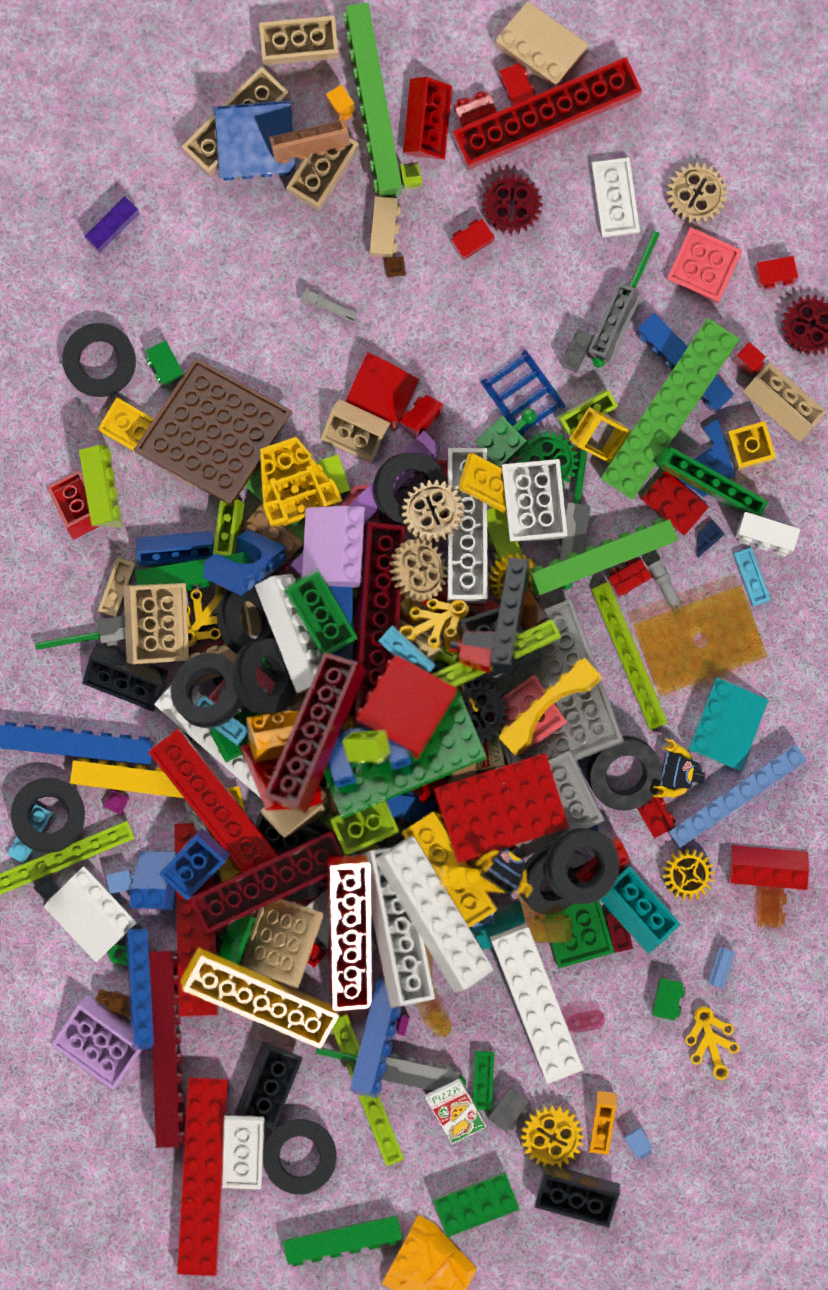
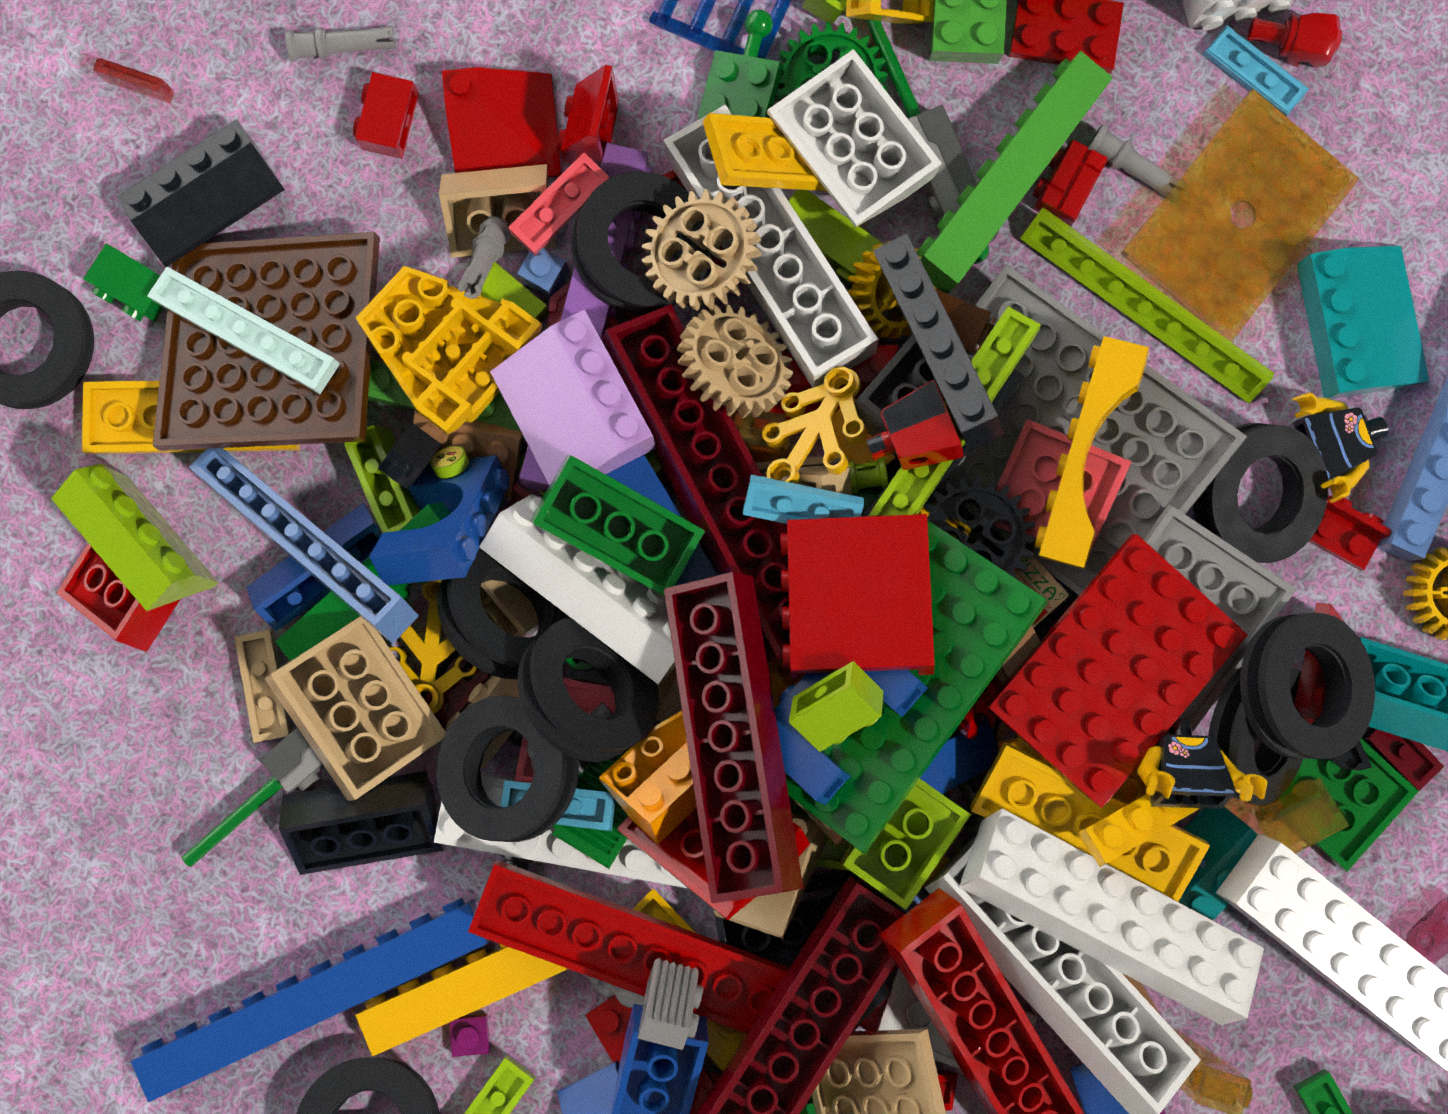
camera: 30 degrees left, 0 degrees up
(177, 534) = (305, 543): none -> medium blue brick
(205, 421) = (244, 330): none -> light aqua plate
(218, 834) = (669, 1004): none -> light grey brick
(221, 266) = (133, 80): none -> clear red tile
(222, 342) = (200, 193): none -> black slope
(247, 524) = (409, 456): none -> black brick
(263, 537) = (449, 462): none -> tile
(329, 354) = (385, 115): none -> red brick
(338, 449) = (486, 250): none -> light grey pin
(358, 472) = (543, 272): none -> medium blue brick
(383, 448) = (557, 204): none -> coral plate
(591, 915) = (1353, 759): none -> black tile
(707, 537) = (1149, 52): dark blue tile -> none
(780, 574) = (1301, 38): none -> red piece

